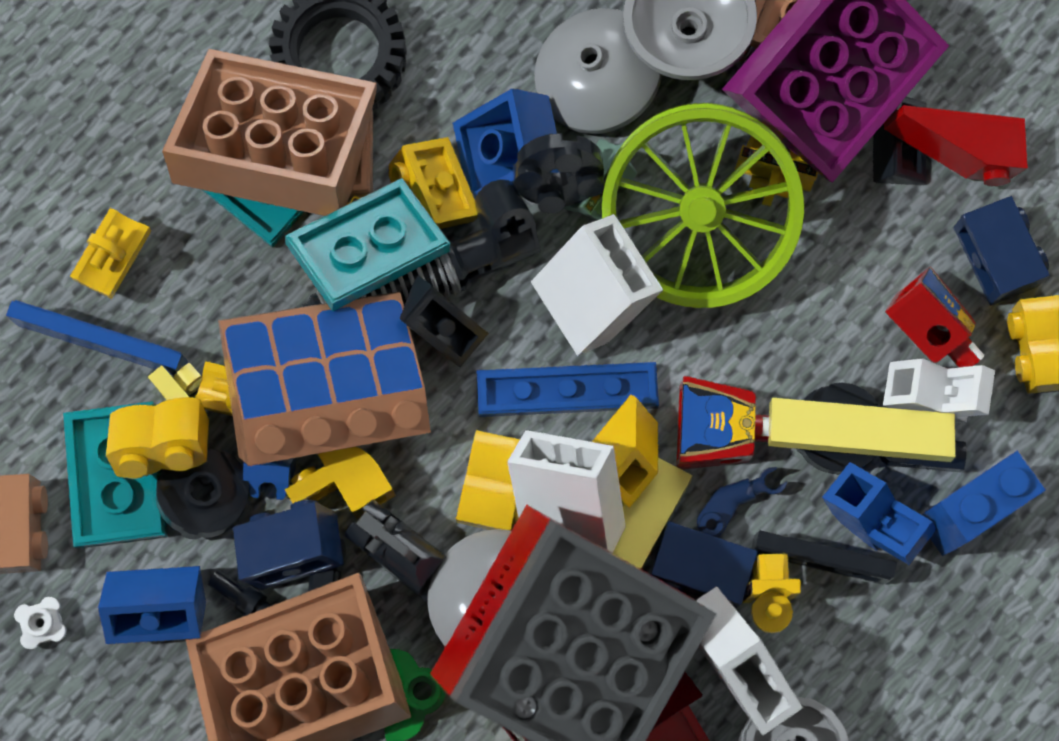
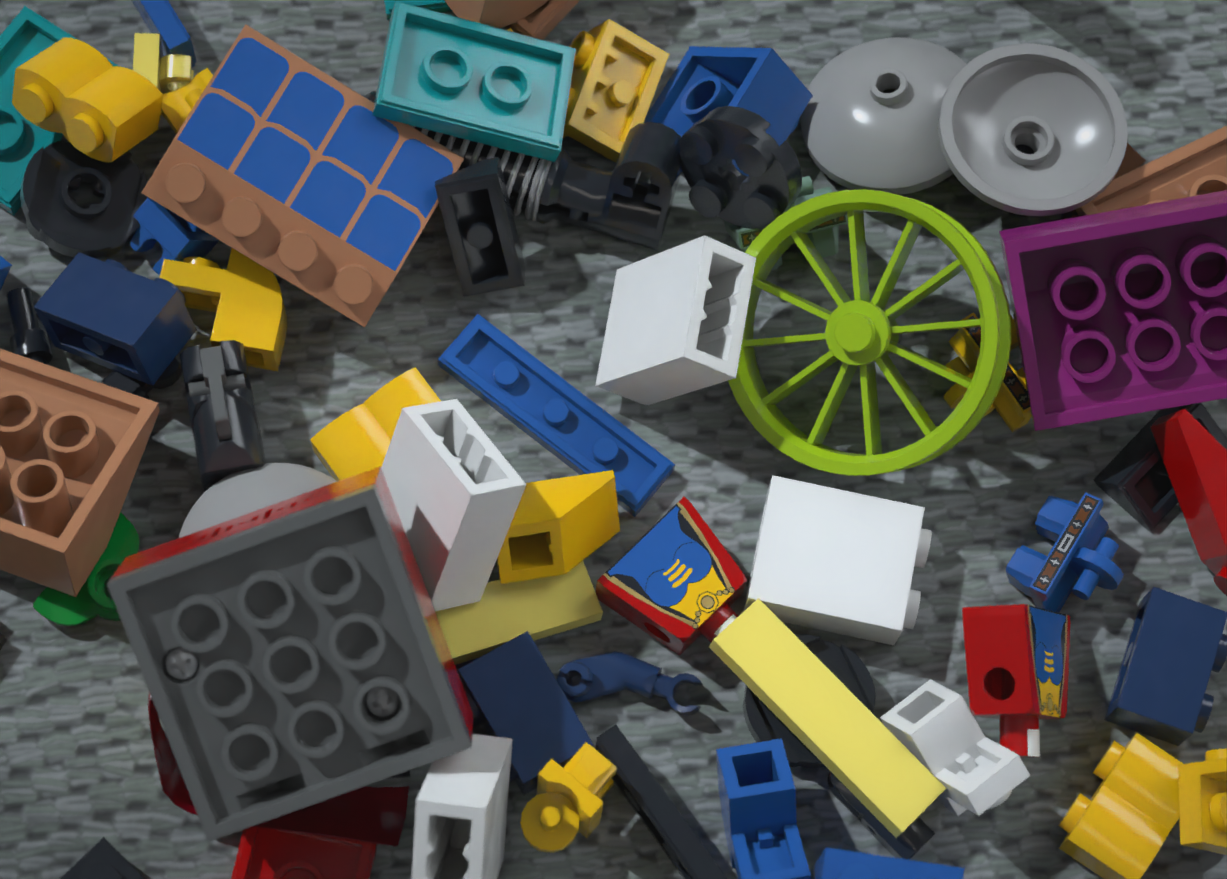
camera: 35 degrees right, 5 degrees down
(787, 340) = (838, 560): none -> white brick
(893, 217) = (1076, 560): none -> blue hips

